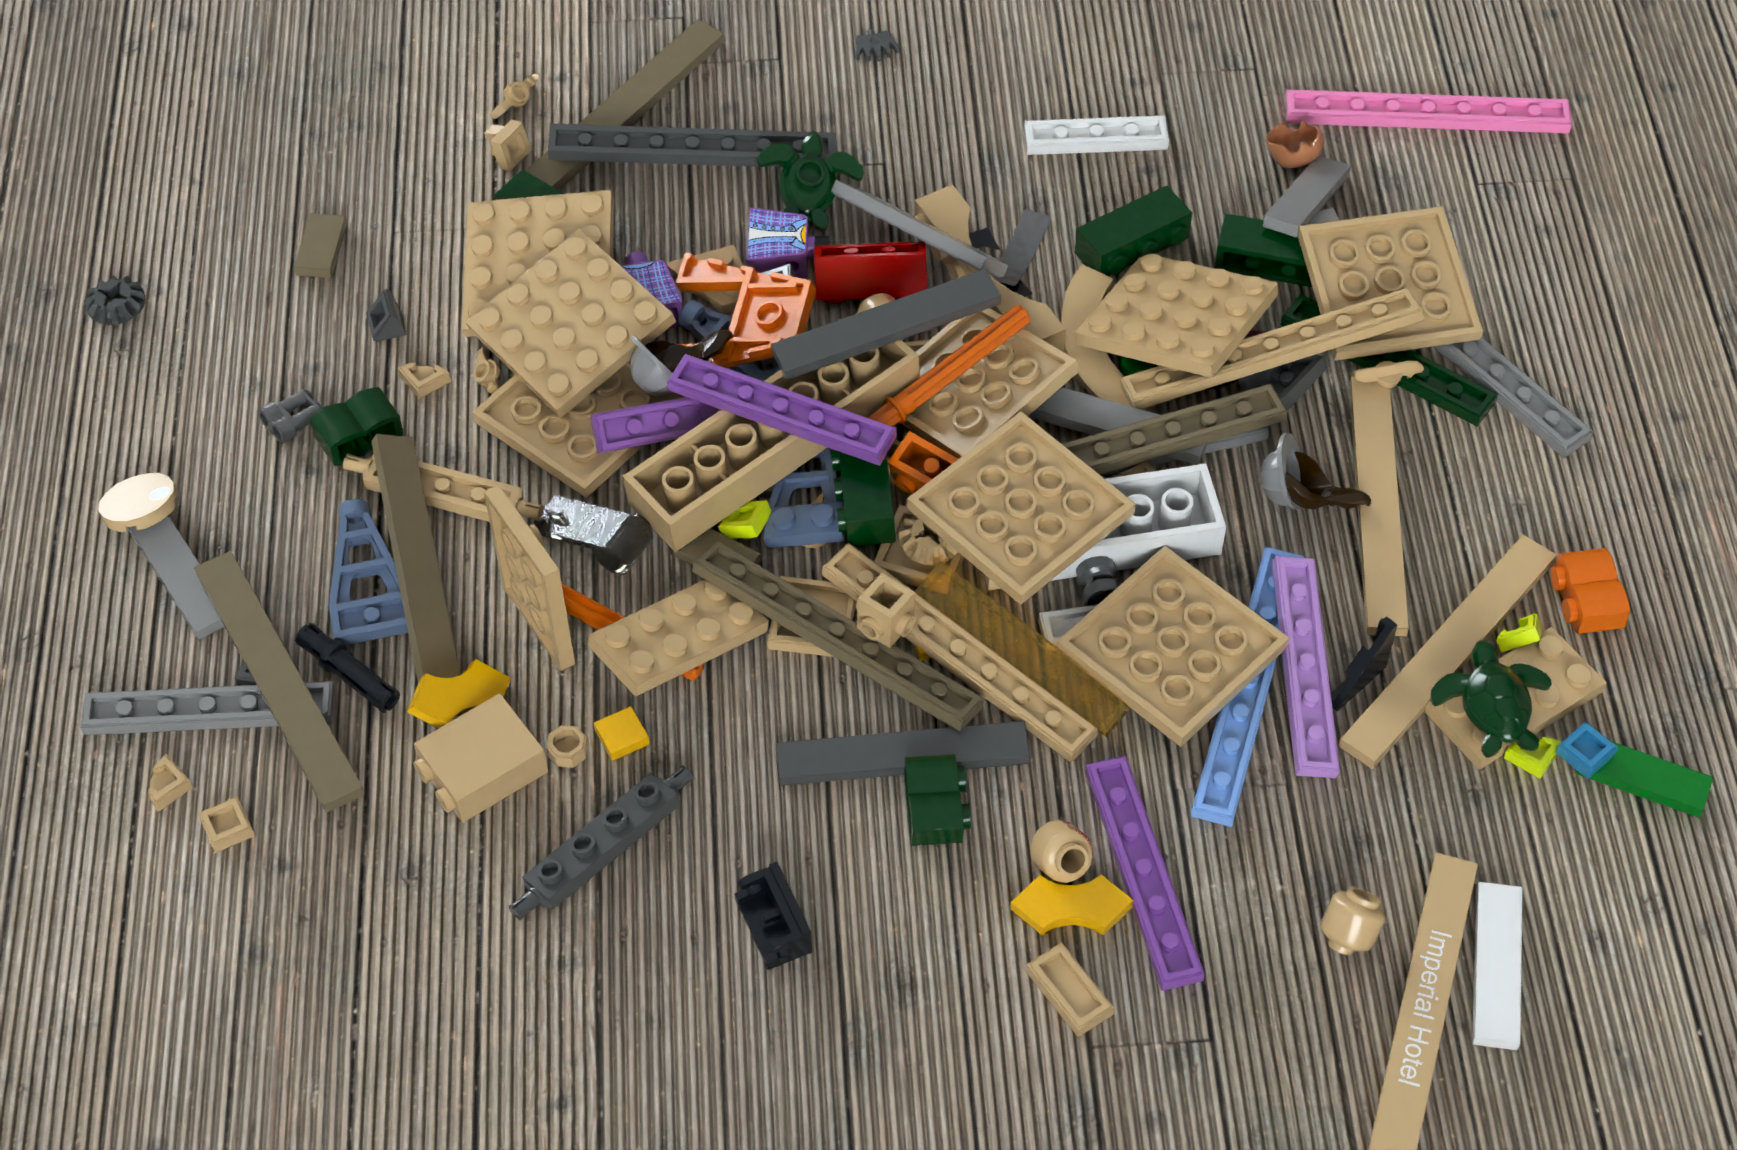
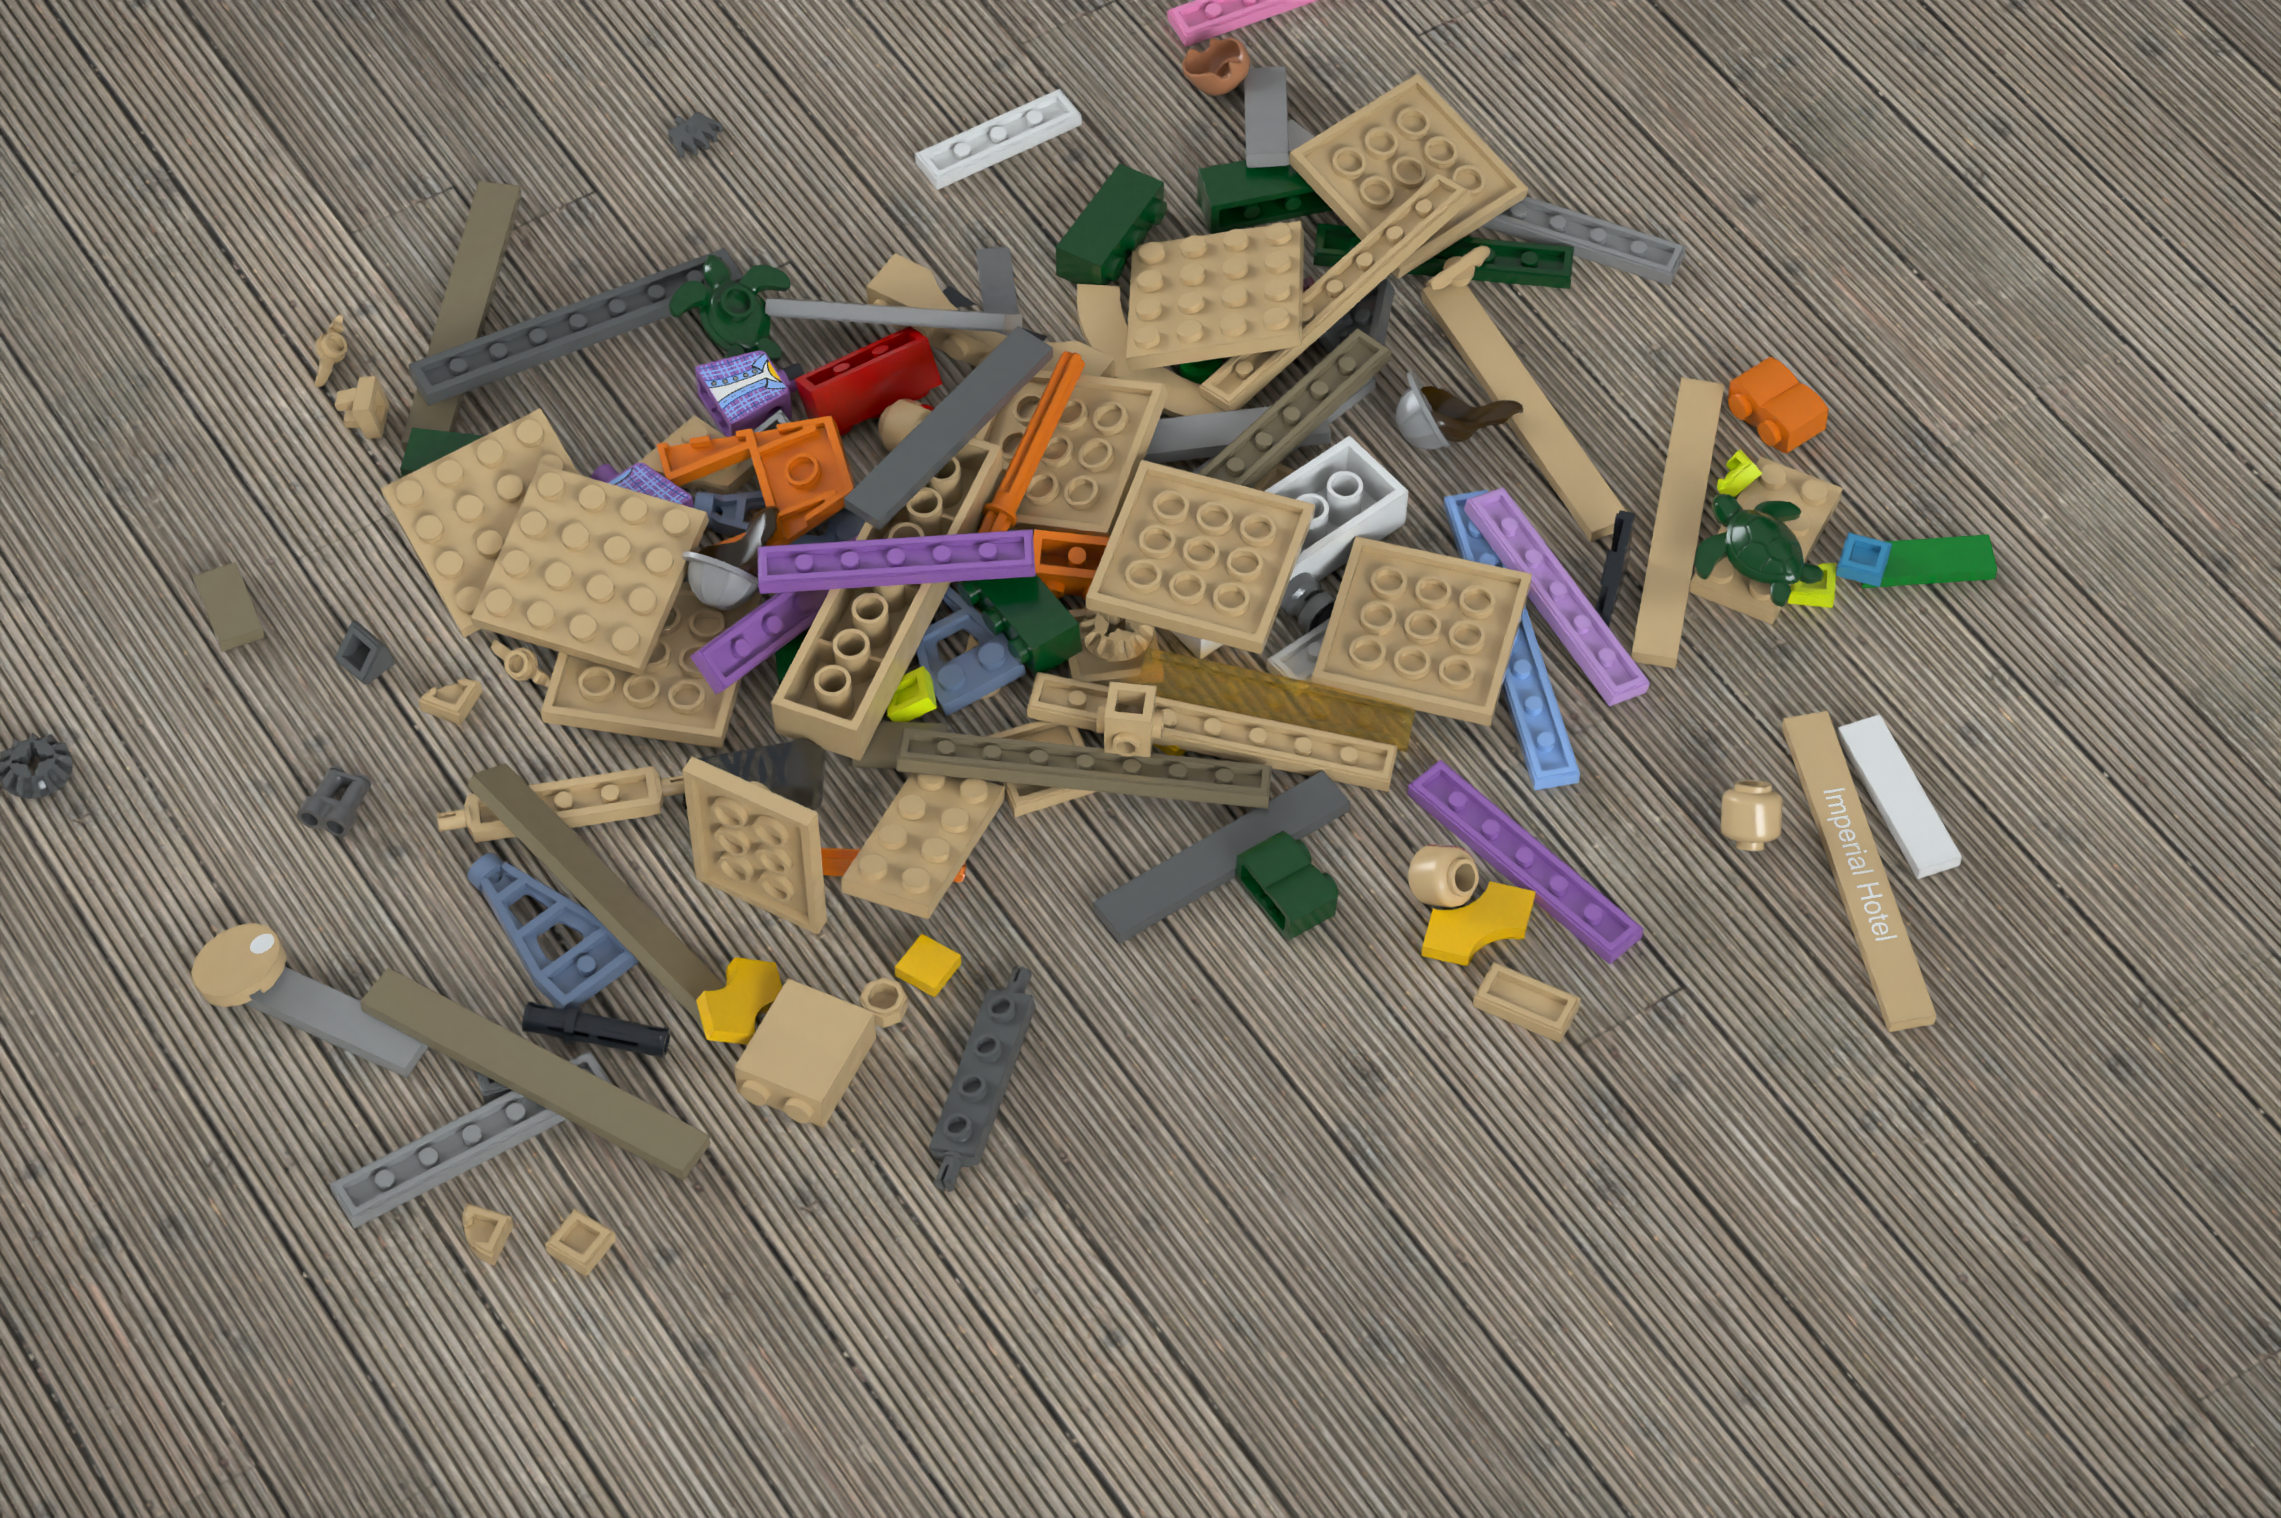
camera: 30 degrees left, 0 degrees up
(353, 424) = (421, 780): dark green brick -> none
(773, 916) = (1205, 1066): black hinge -> none

